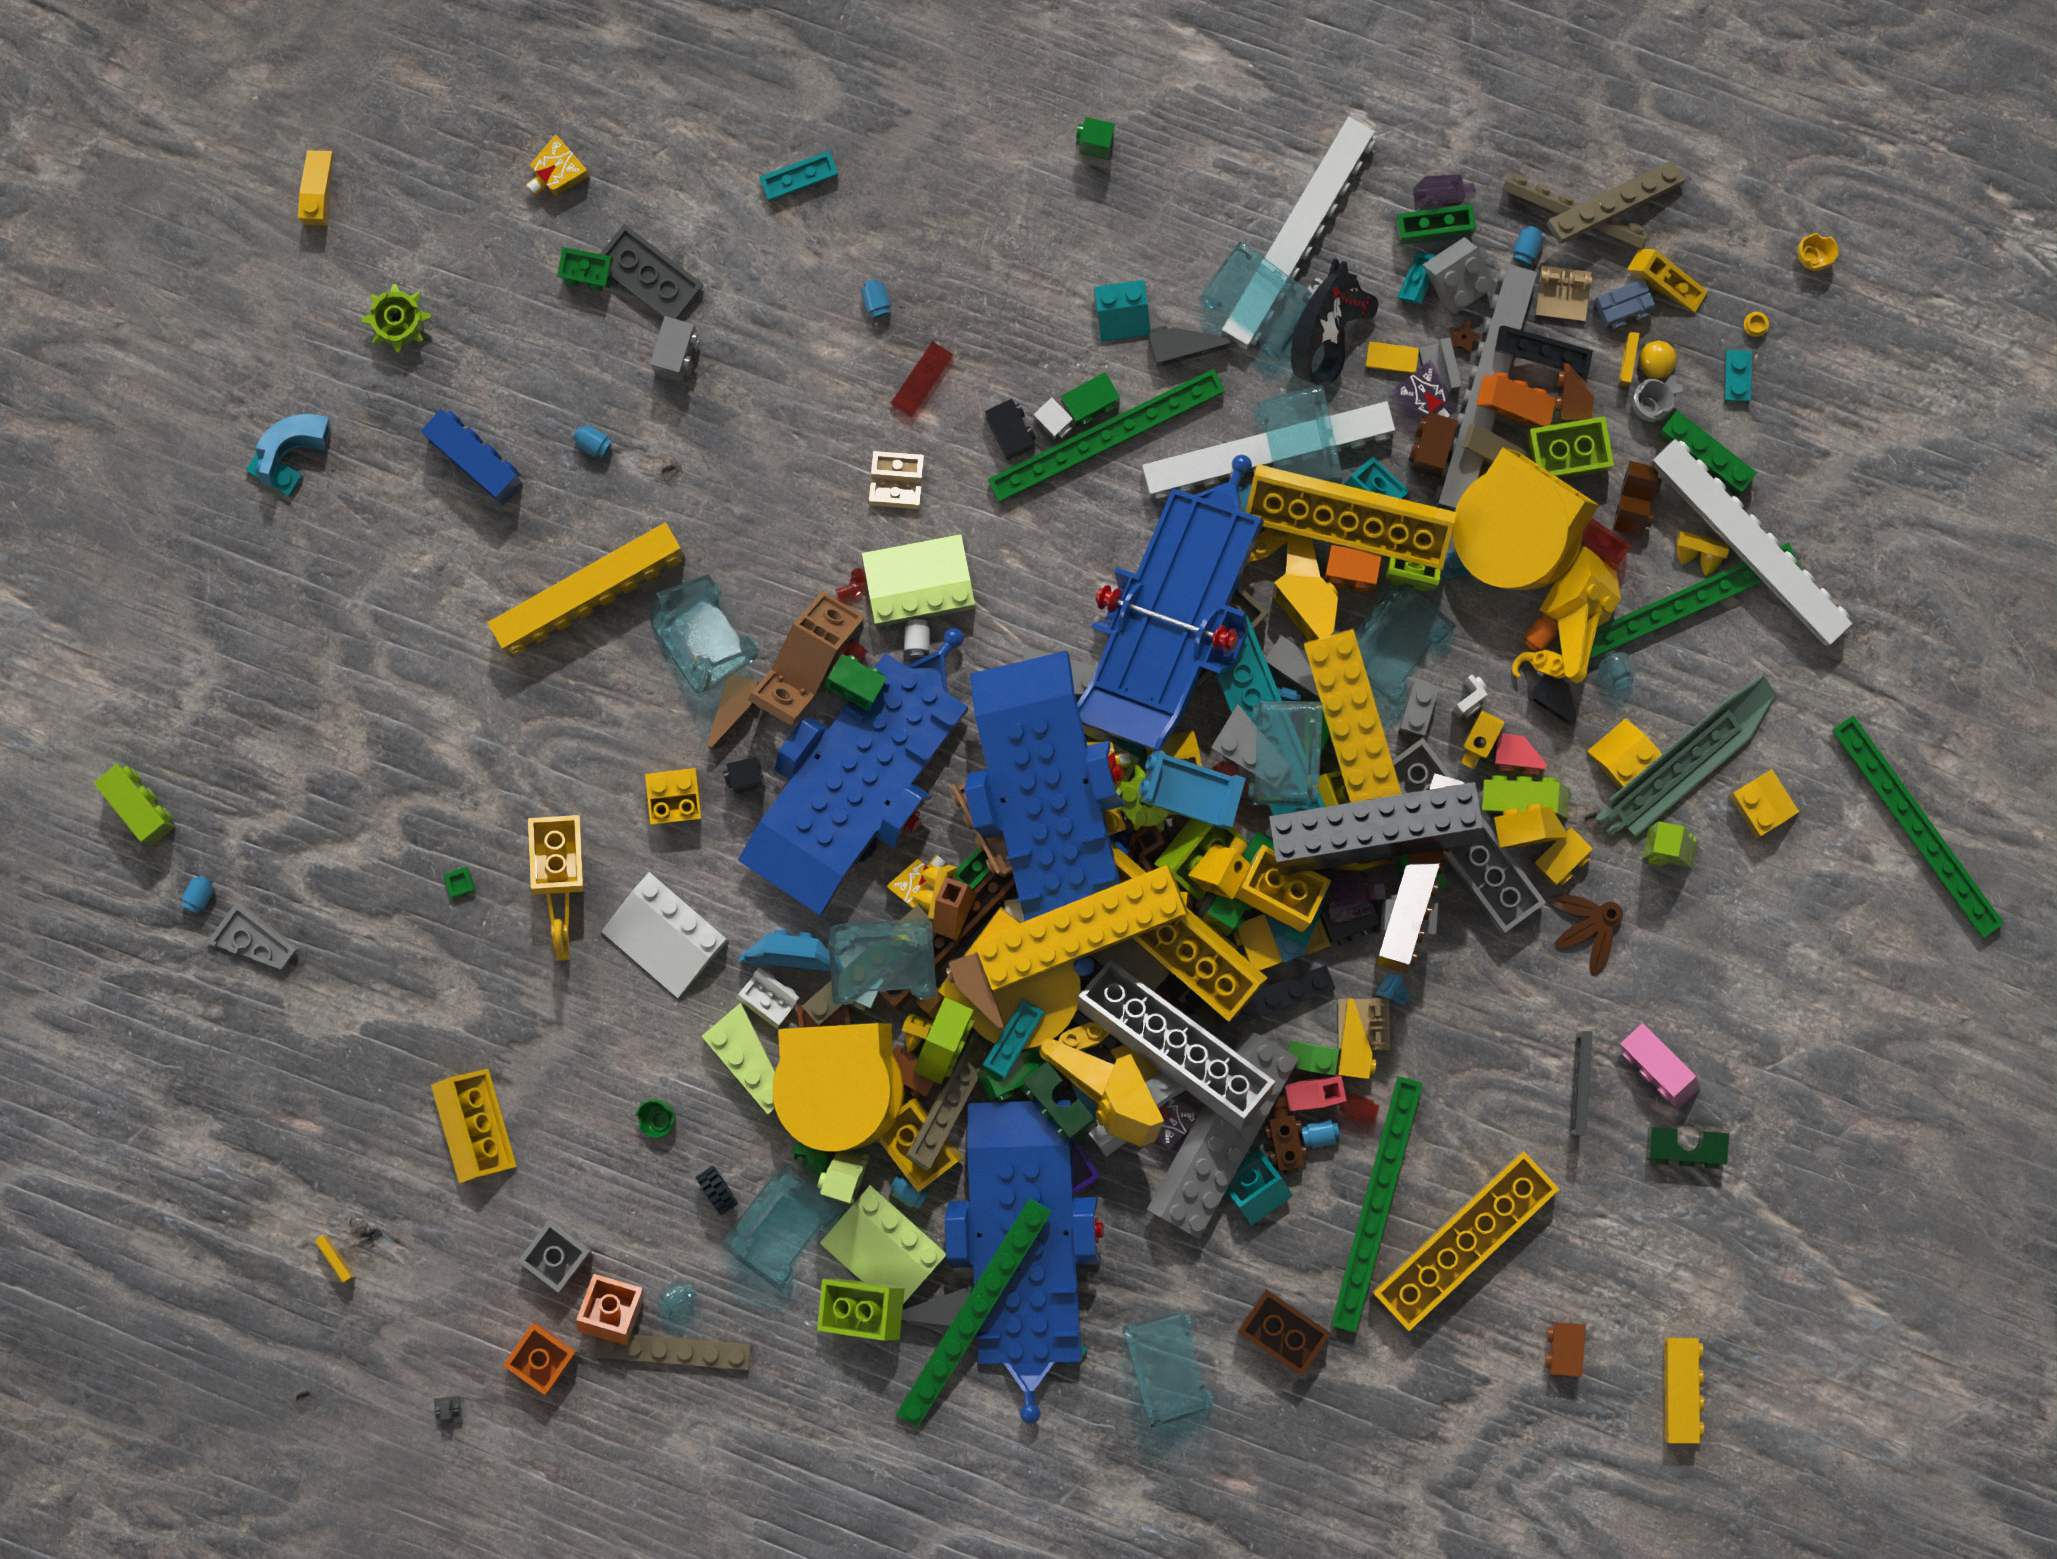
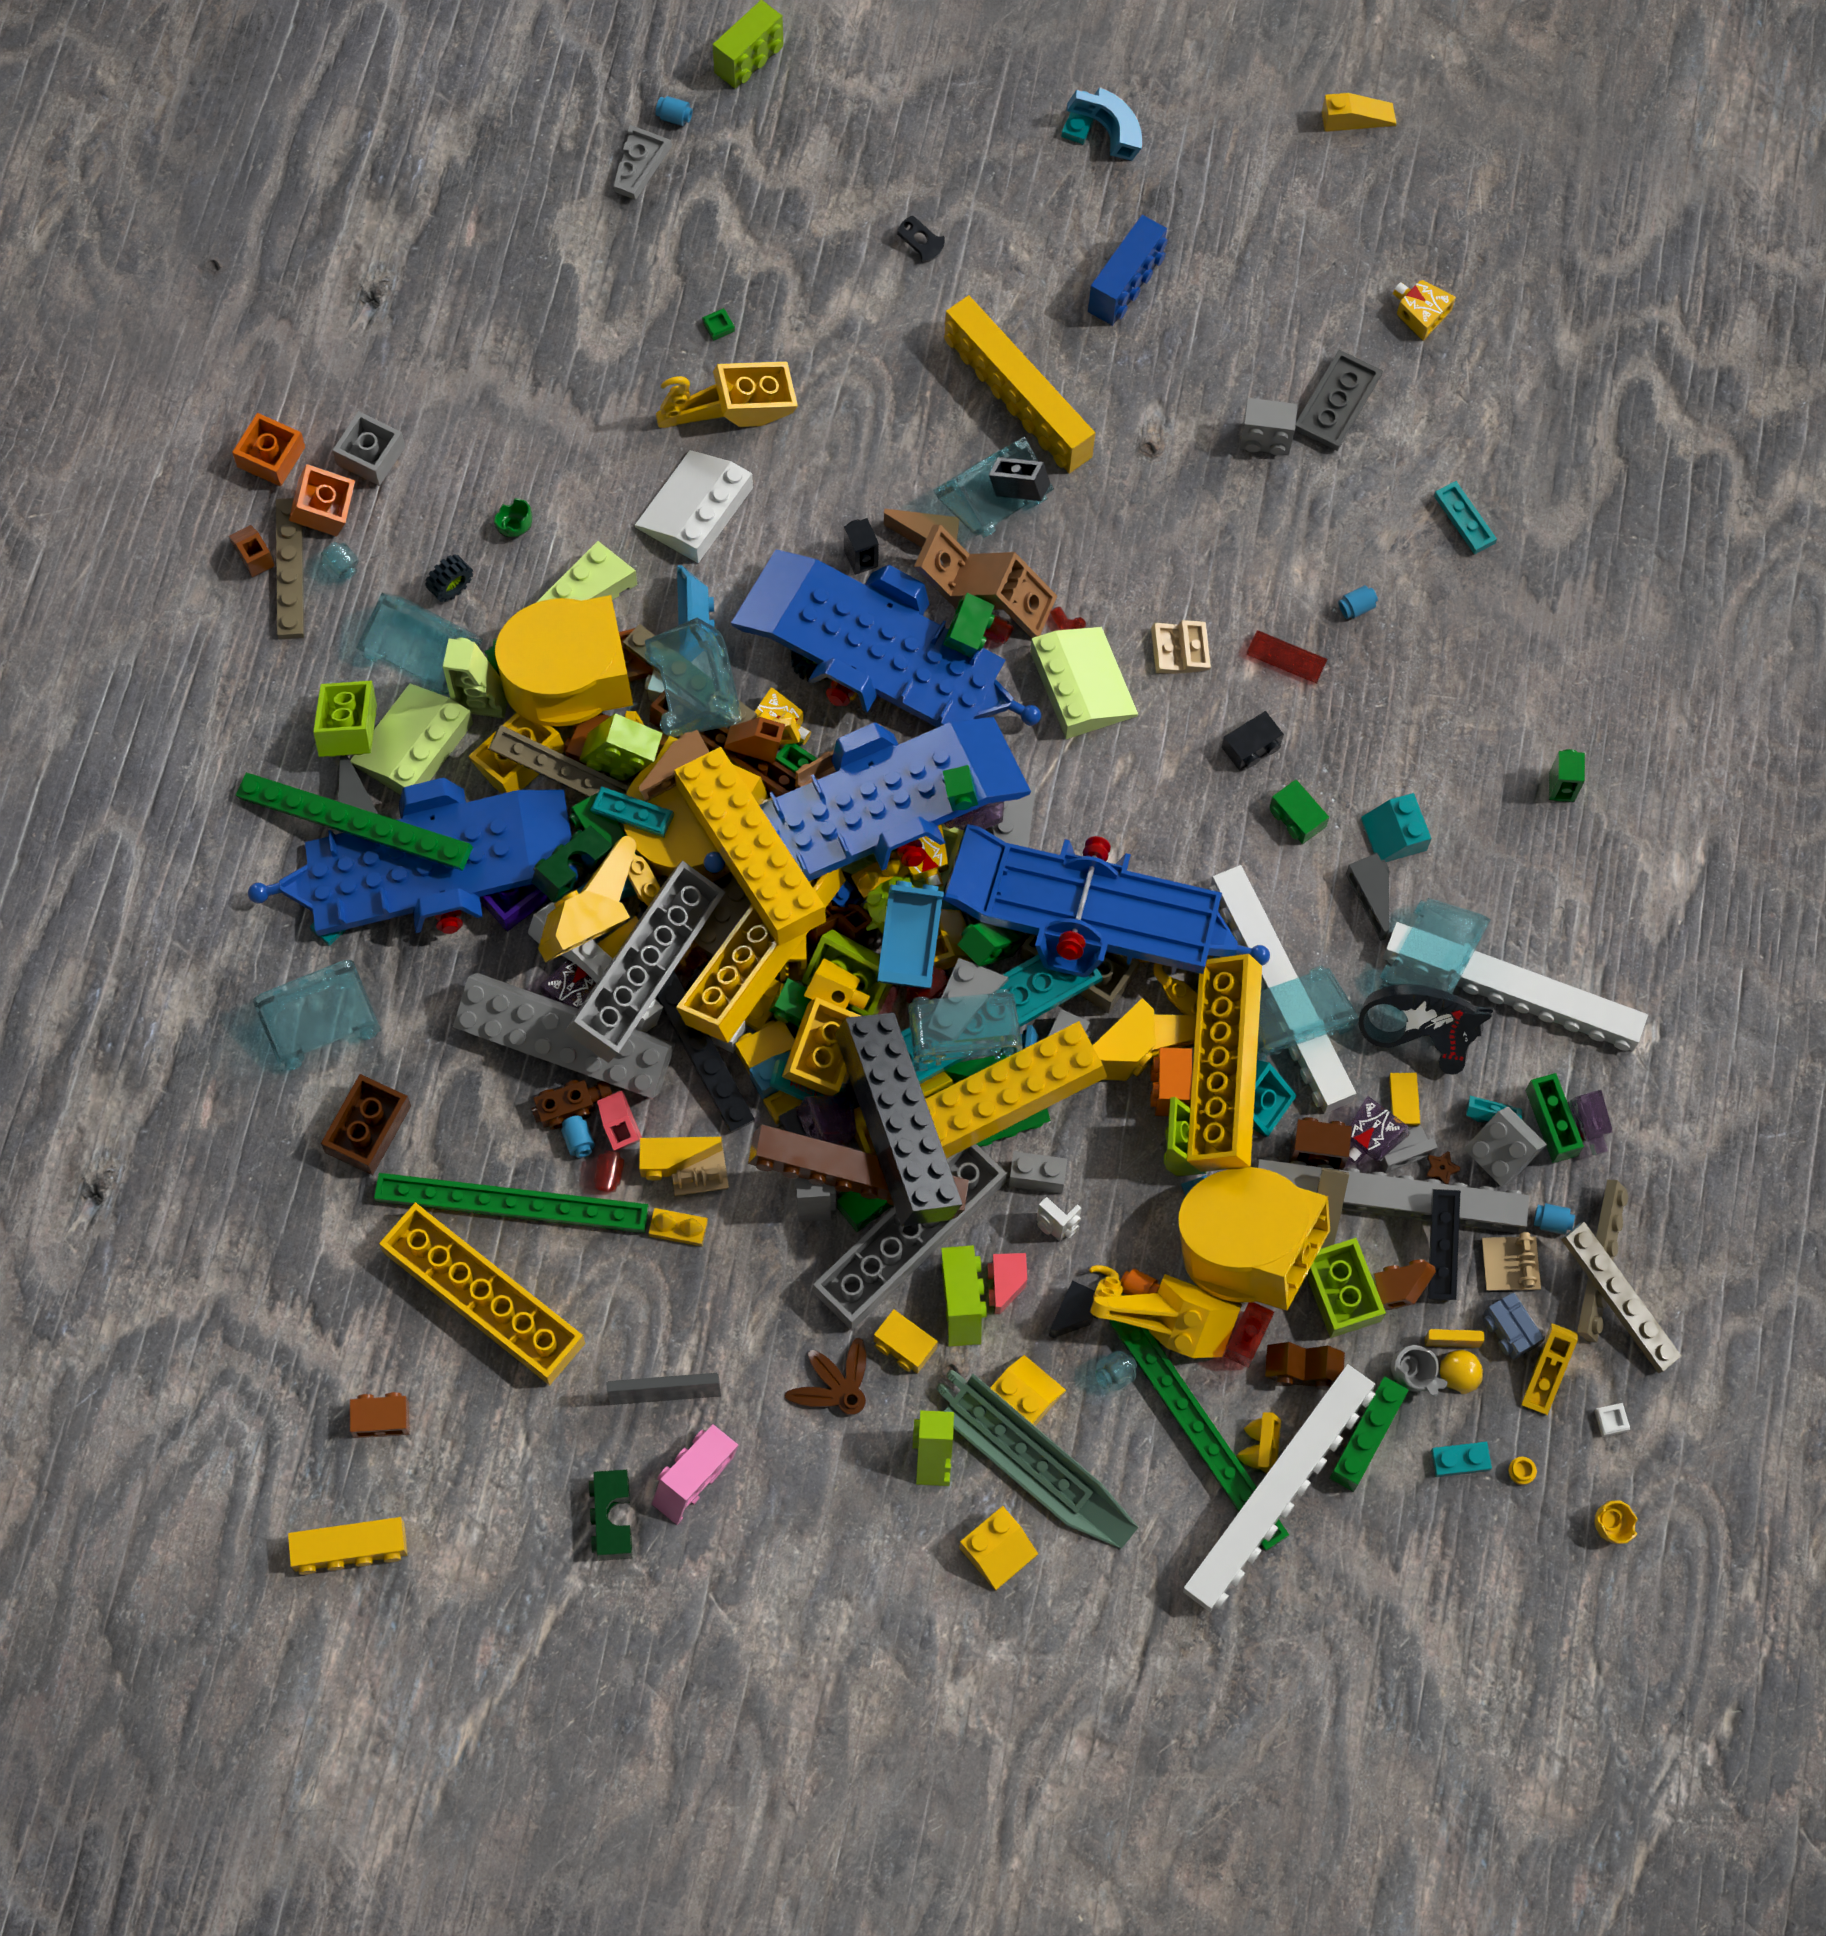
camera: 75 degrees right, 15 degrees down
(334, 1258) = (346, 268): yellow tile -> none
(401, 649) = (927, 251): none -> black piece
(402, 306) = (1248, 192): lime brick -> none
(448, 1410) = (213, 383): dark grey brick -> none
(473, 1125) = (487, 365): yellow slope -> none
(586, 268) = (1331, 341): green bracket -> none
(592, 441) = (1164, 374): dark azure brick -> none
(648, 1387) = (252, 550): none -> dark orange slope
(673, 796) = (831, 489): yellow slope -> none
(700, 606) = (1019, 479): none -> black brick
(768, 997) = (645, 600): white bracket -> none
(906, 1193) = (462, 761): dark azure brick -> none
(917, 638) = (1025, 685): white brick -> none
(1054, 419) = (1271, 779): white brick -> none
(1062, 717) = (960, 788): none -> green brick
(1106, 435) = (1266, 833): green plate -> none
(1199, 721) = (990, 943): none -> green brick
(1257, 1187) = (513, 1080): teal slope -> none
(1315, 1057) = (655, 1117): bright green slope -> none
(1393, 989) = (737, 1189): dark azure brick -> none
(1397, 638) = (1102, 1140): clear light blue windscreen -> none
(1420, 1051) = (678, 1227): none -> yellow tile
(1484, 726) = (1020, 1236): yellow torso -> none
(1516, 400) = (1384, 1221): orange brick -> none
(1528, 827) = (928, 1290): yellow slope -> none
(1720, 234) = (1612, 1419): none -> white tile
(1917, 827) = (999, 1721): green plate -> none

